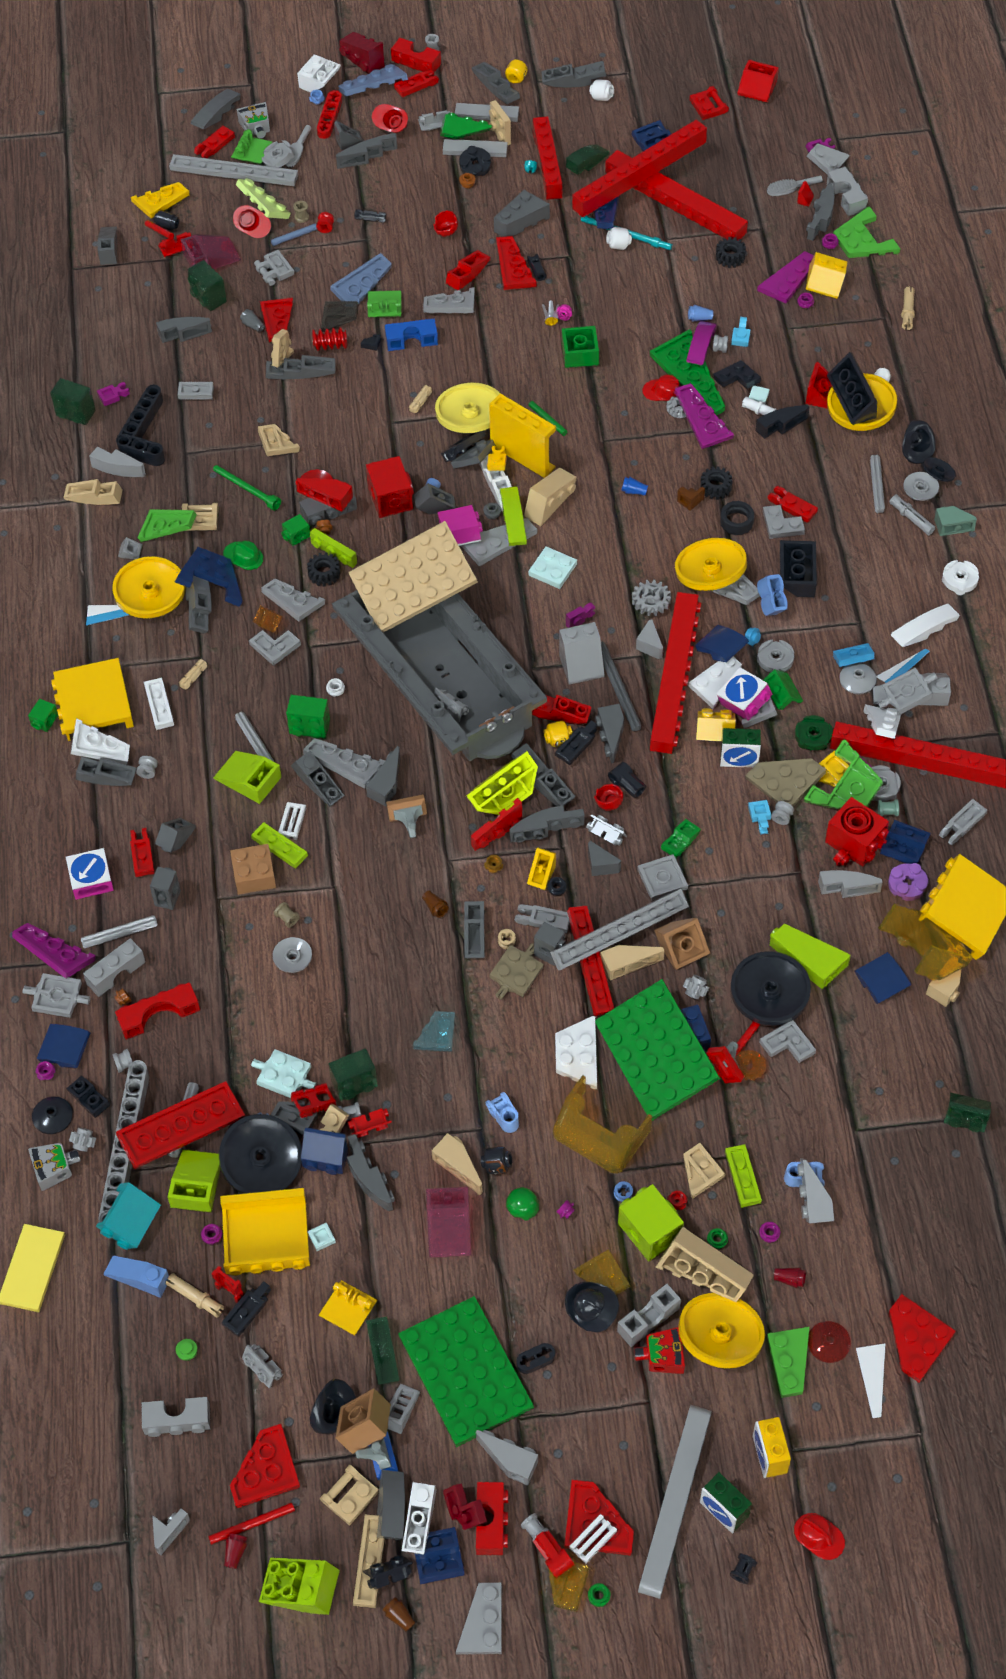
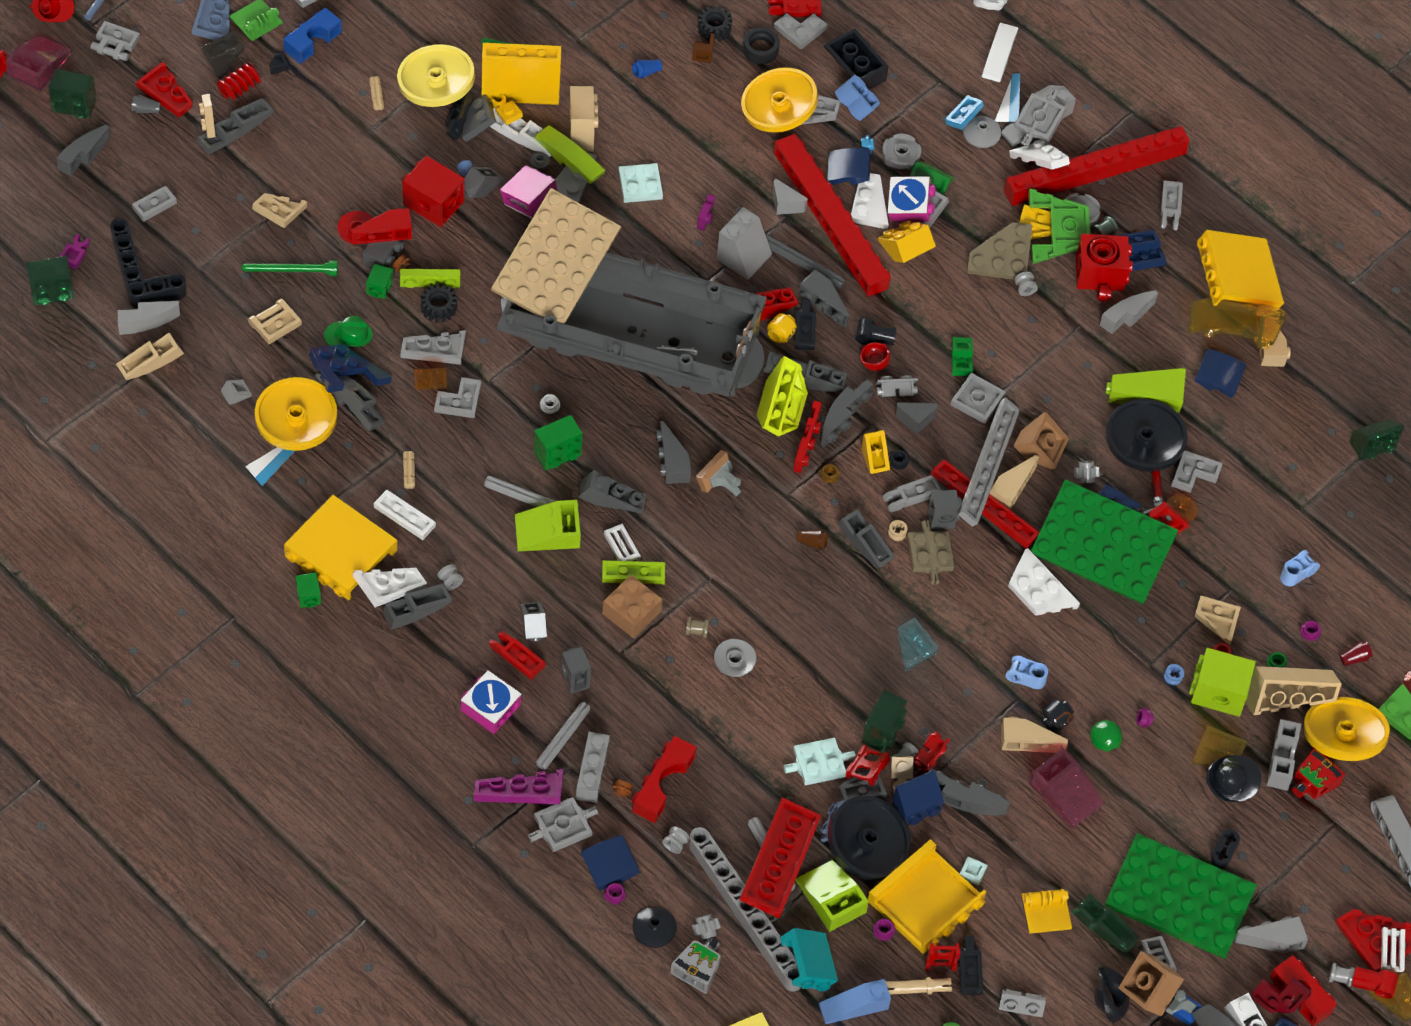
camera: 45 degrees left, 0 degrees up
(88, 1096) = (668, 890): black slope -> none
(166, 522) = (253, 344): bright green wing -> none
(344, 762) = (623, 465): light grey wing -> none
(594, 1141) = (1114, 648): clear yellow windscreen -> none
(651, 597) = (753, 160): light grey gear -> none
(740, 747) = (948, 247): piece -> none
(743, 1176) = (1253, 600): lime plate -> none
(760, 813) = (1007, 295): medium azure plate -> none
(813, 742) = (987, 209): dark green plate -> none
(816, 1199) = (1327, 579): light grey slope -> none
(912, 872) = (1170, 271): medium lavender plate -> none

